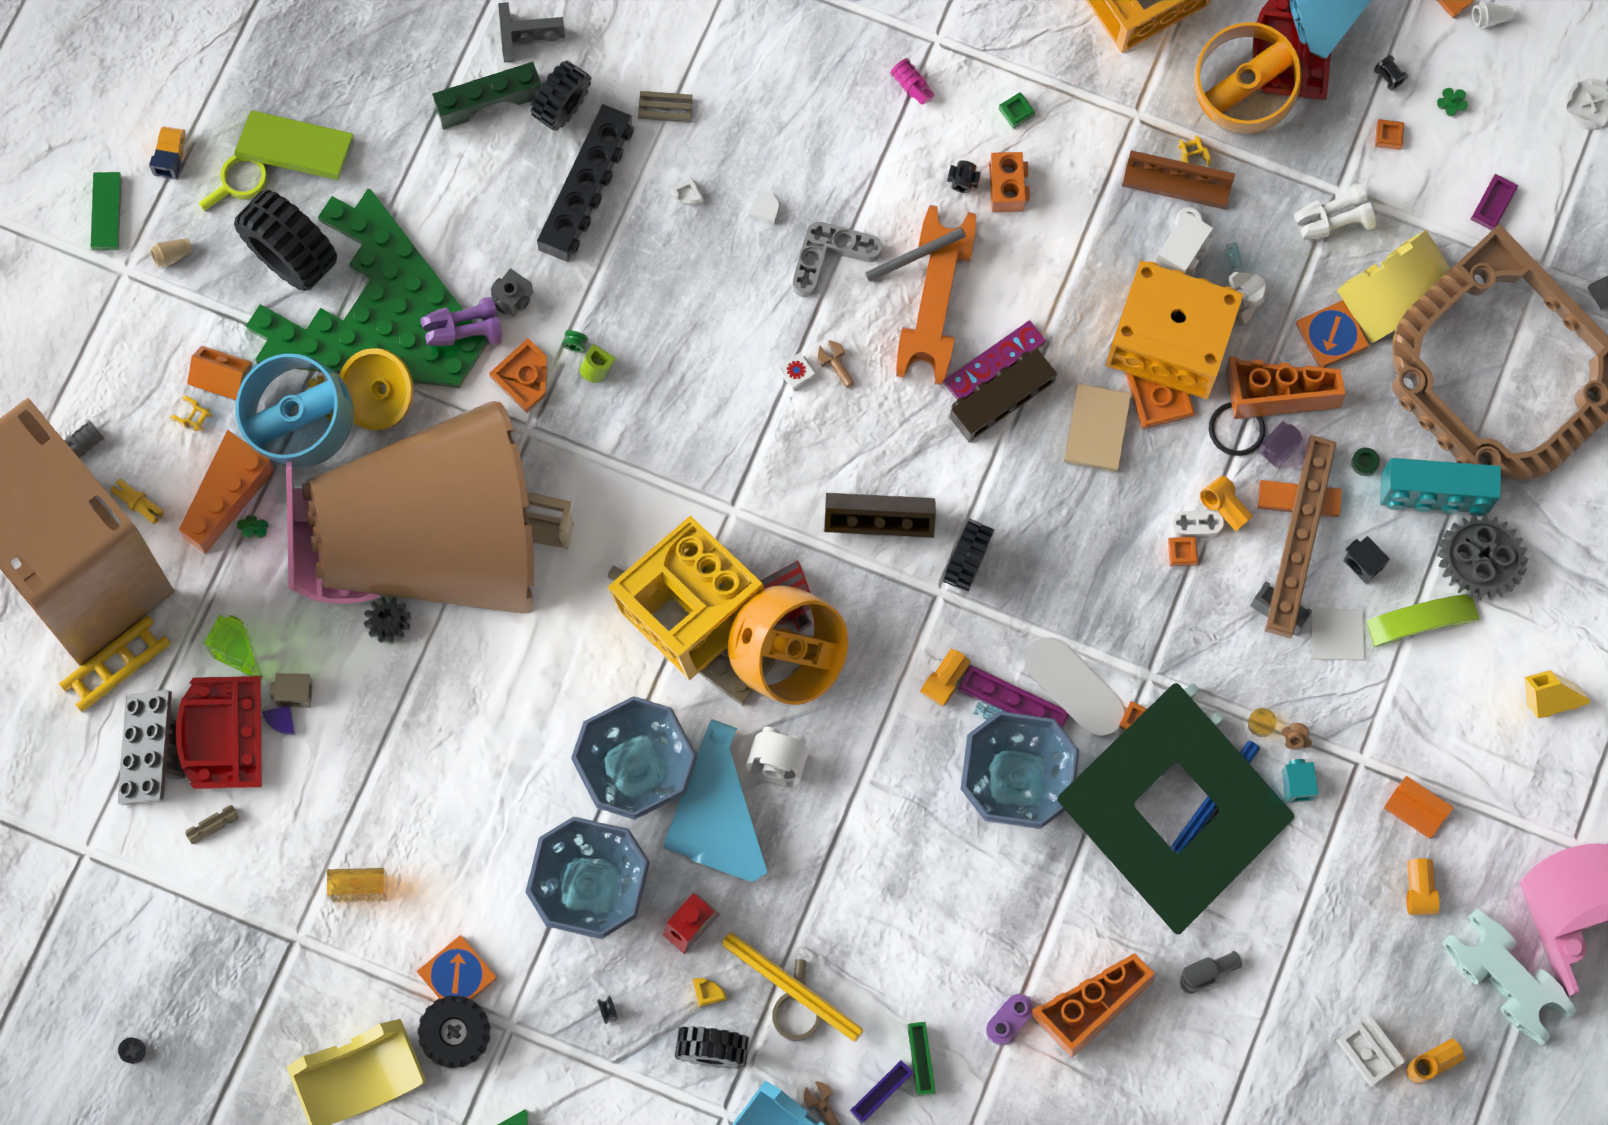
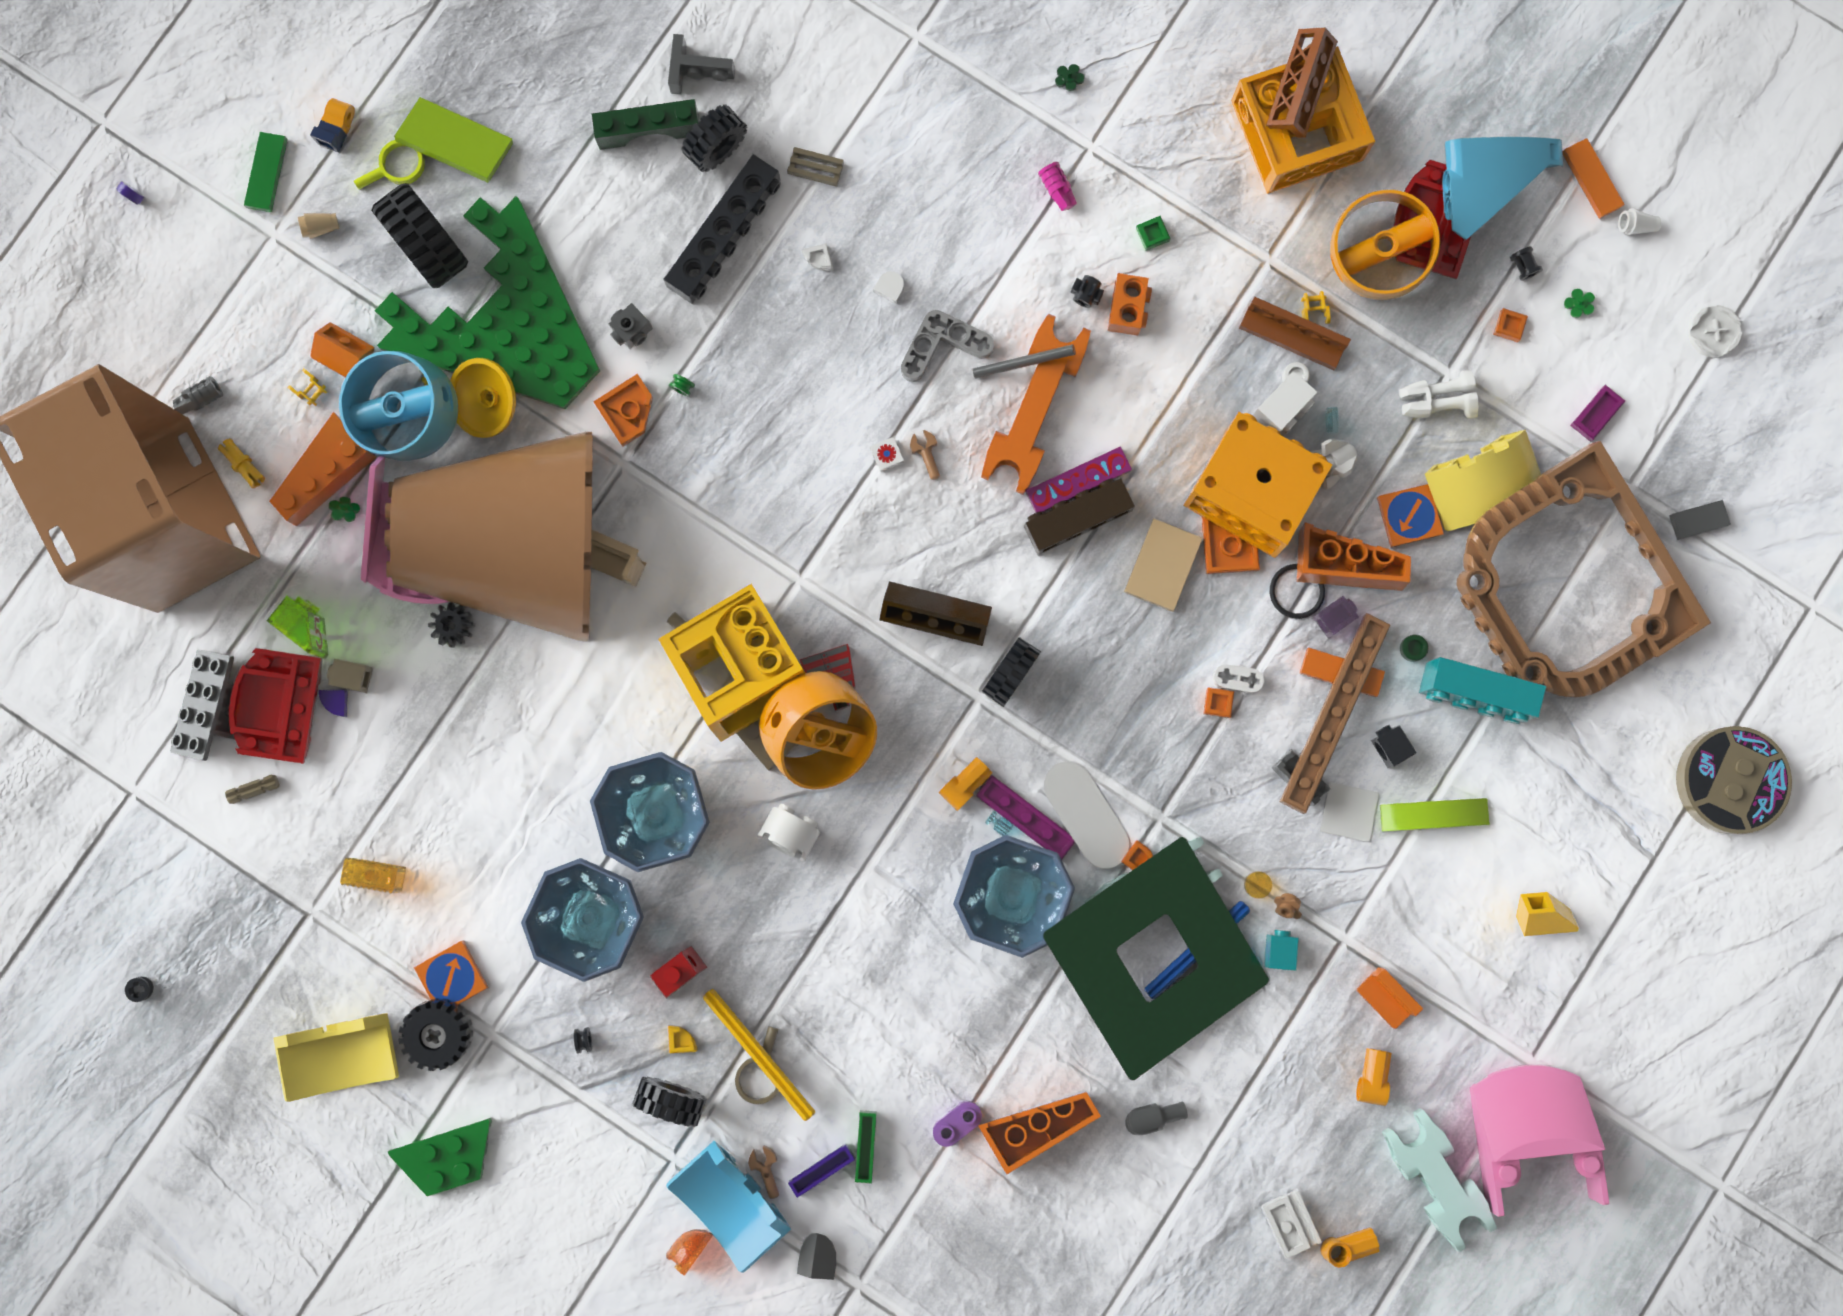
camera: 15 degrees right, 10 degrees up
(97, 663) = (175, 613): yellow bar -> none
(444, 333) = (560, 357): medium lavender piece -> none
(596, 364) = (697, 412): lime plate -> none
(712, 816) = (717, 876): medium azure panel -> none
(1220, 497) = (1266, 658): light orange piece -> none
(1465, 570) = (1526, 754): dark grey gear -> none

